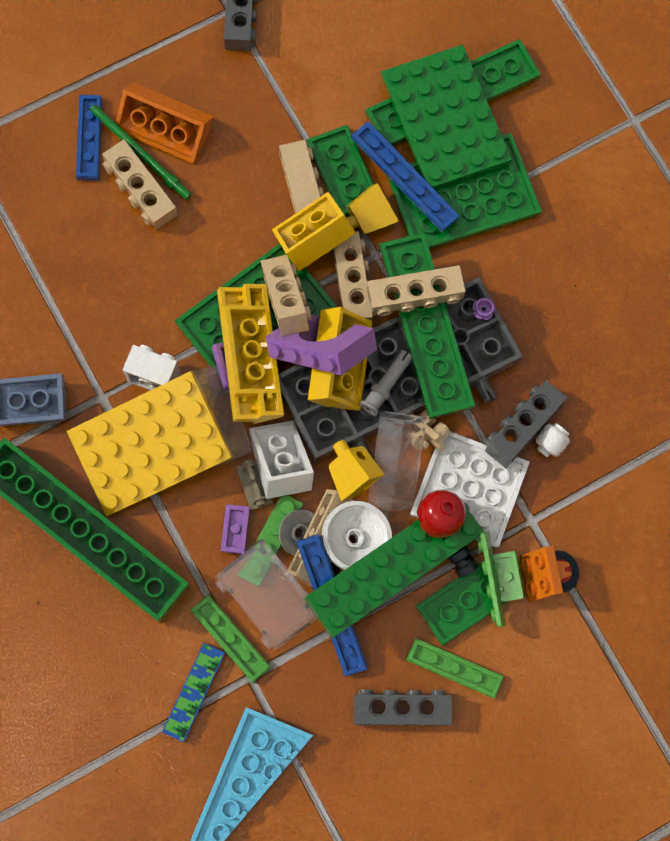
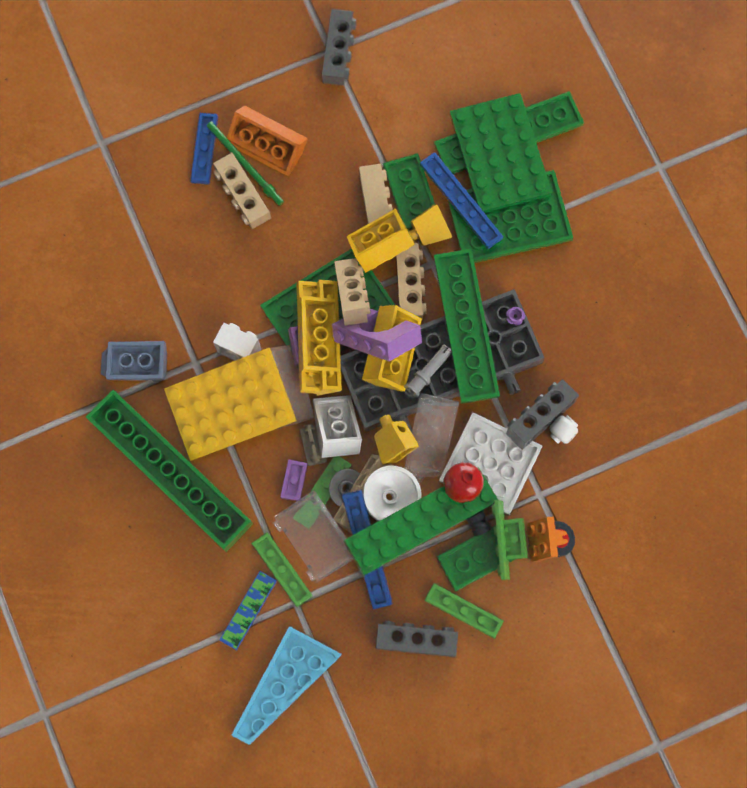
camera: 15 degrees right, 0 degrees up
(436, 435) = (466, 417): tan hips -> none
(447, 277) = (467, 289): tan brick -> none

